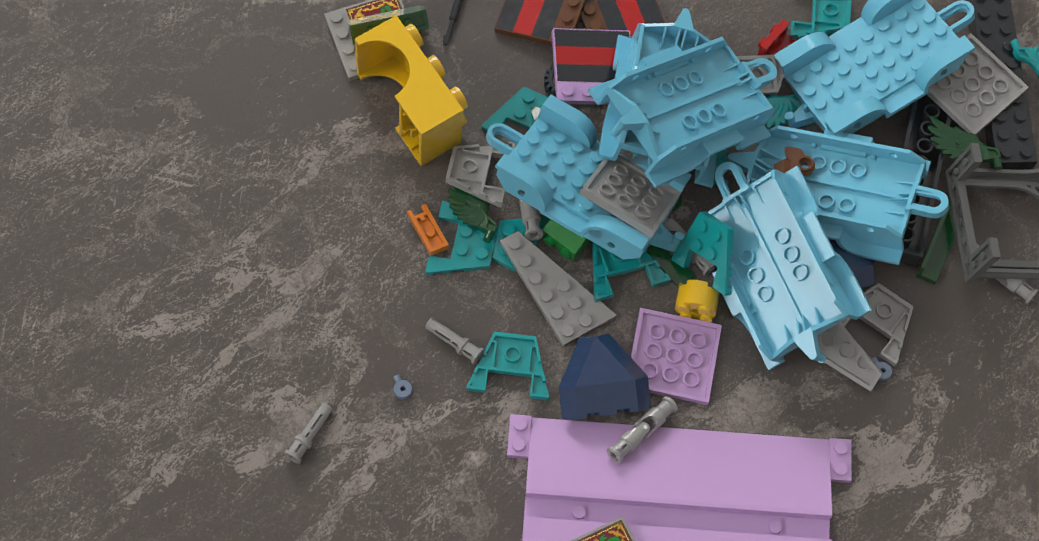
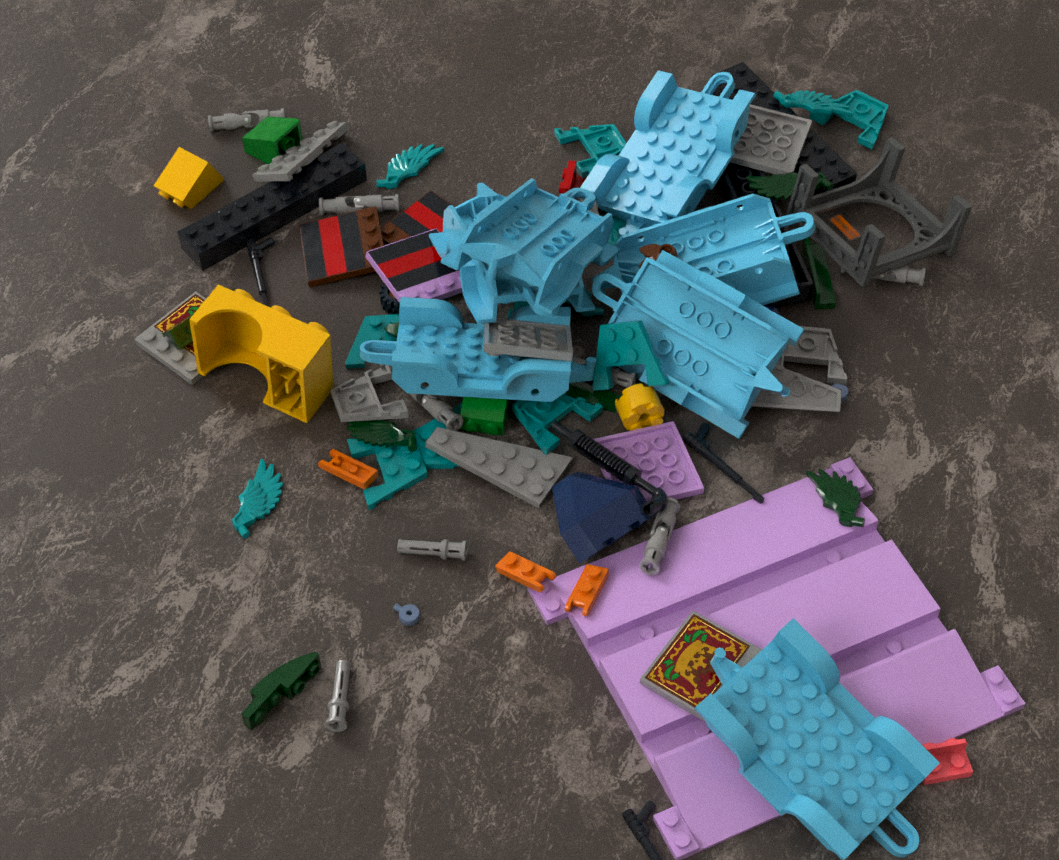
camera: 25 degrees left, 15 degrees down
(275, 397) = (284, 681): none -> dark green slope
(343, 217) = (257, 498): none -> teal animal
(511, 356) = (498, 535): teal wing -> none
(513, 401) = (524, 571): none -> orange hinge
(554, 446) = (587, 588): none -> orange hinge
(643, 347) = (614, 465): none -> black piece
(731, 361) = (703, 448): none -> black piece
(814, 473) = (838, 496): none -> dark green animal
(997, 206) = (845, 227): none -> sticker

